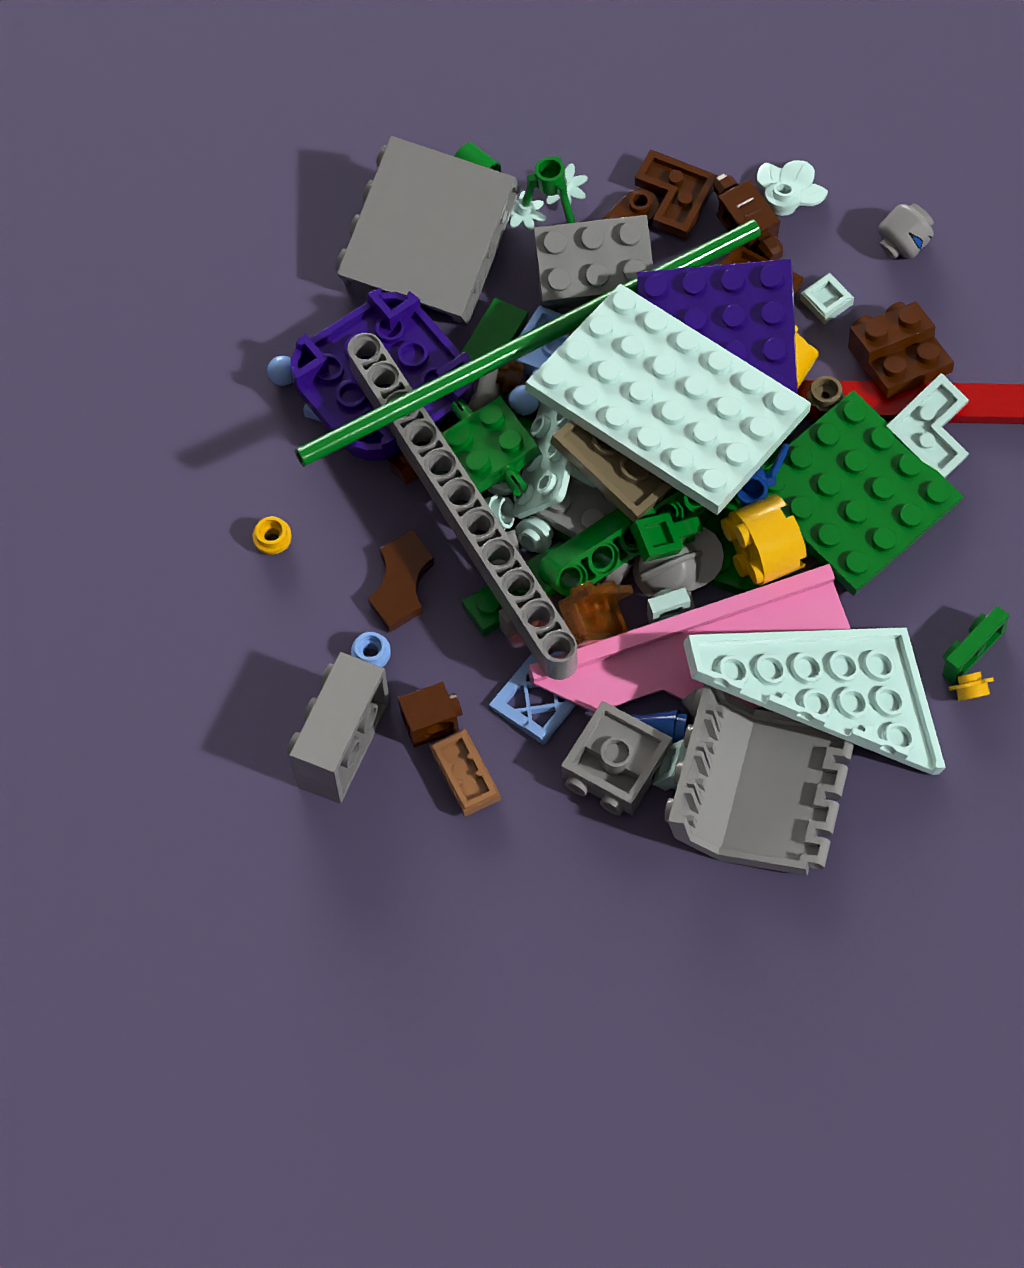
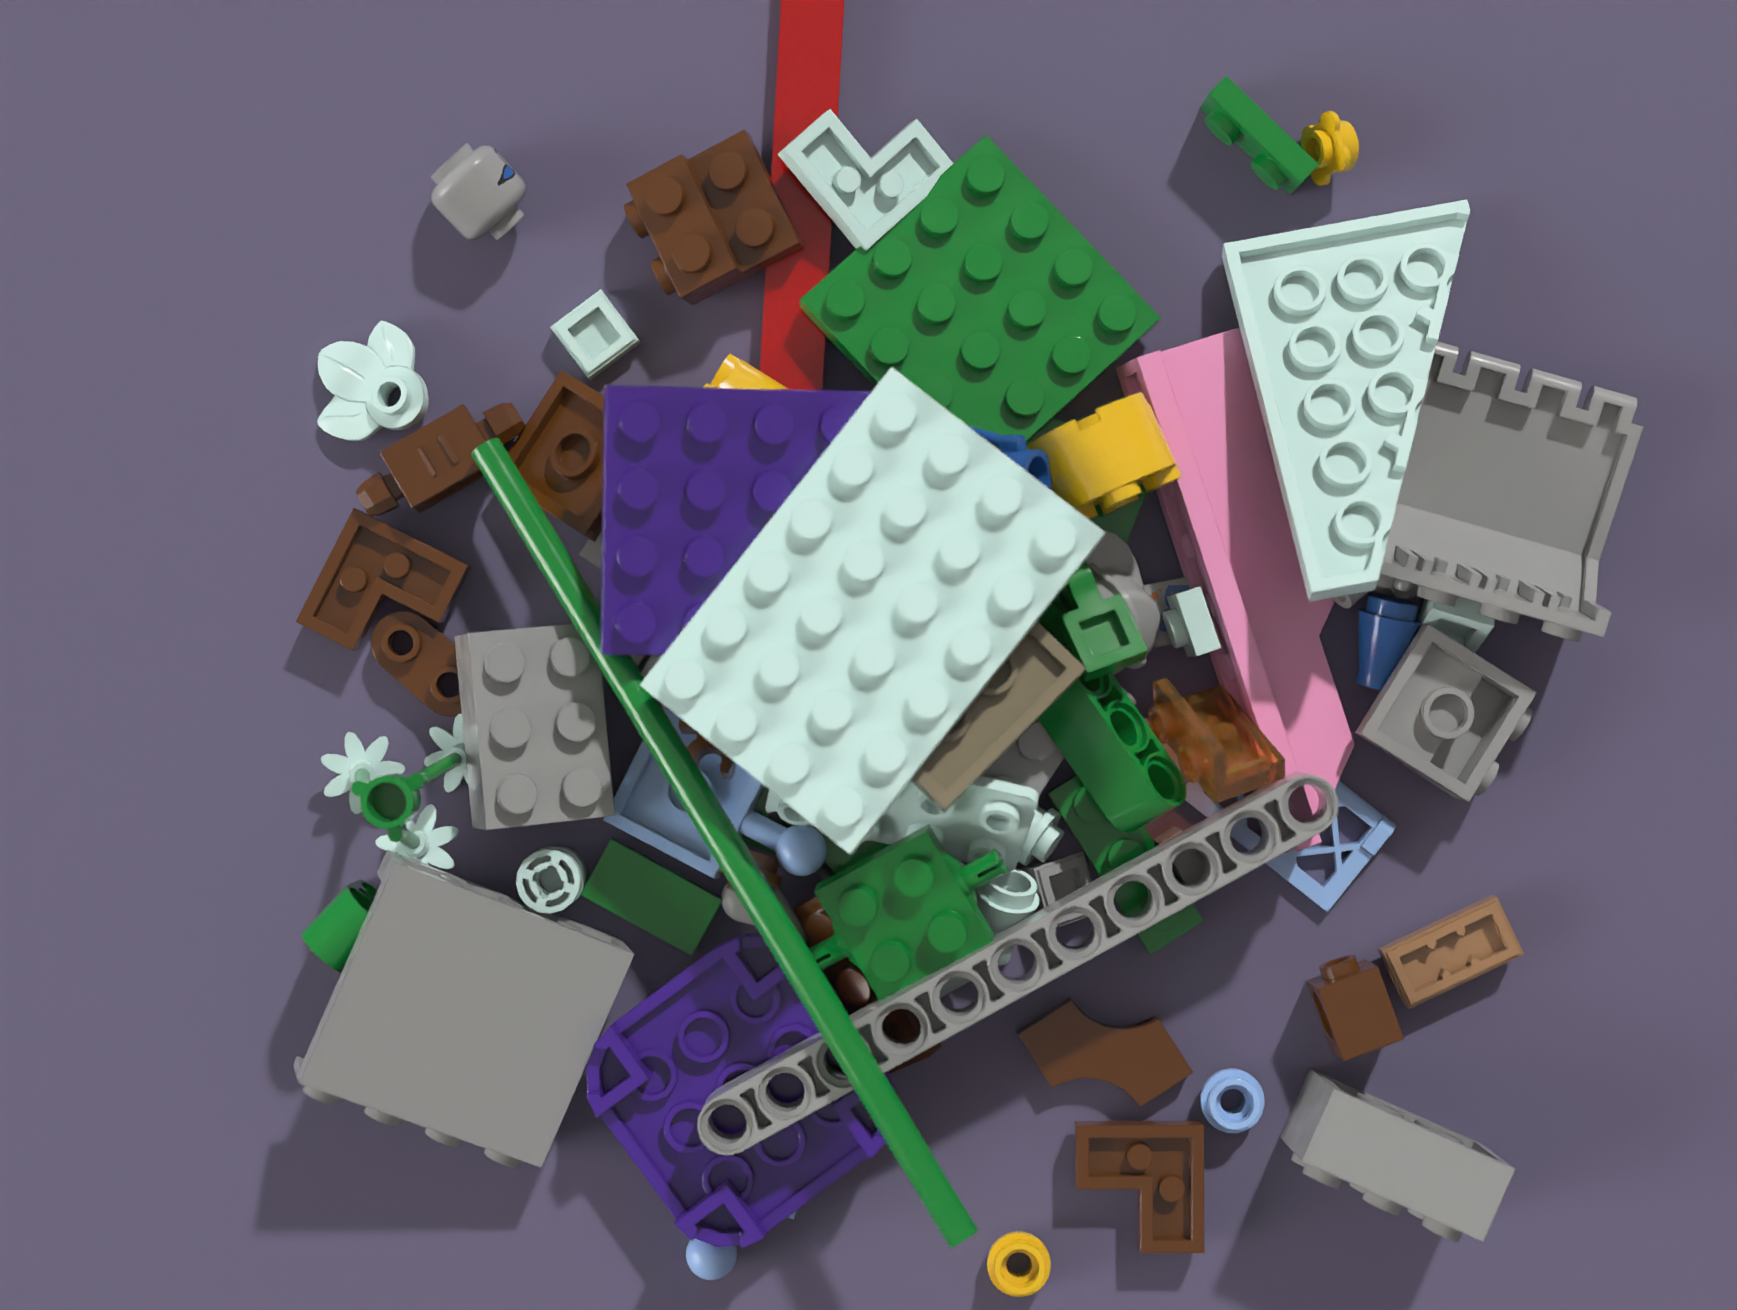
camera: 90 degrees left, 25 degrees up
(331, 611) = (1159, 1161): none -> reddish brown plate
(504, 279) = (558, 870): none -> light aqua wheel
(825, 385) = (803, 329): dark tan plate -> none

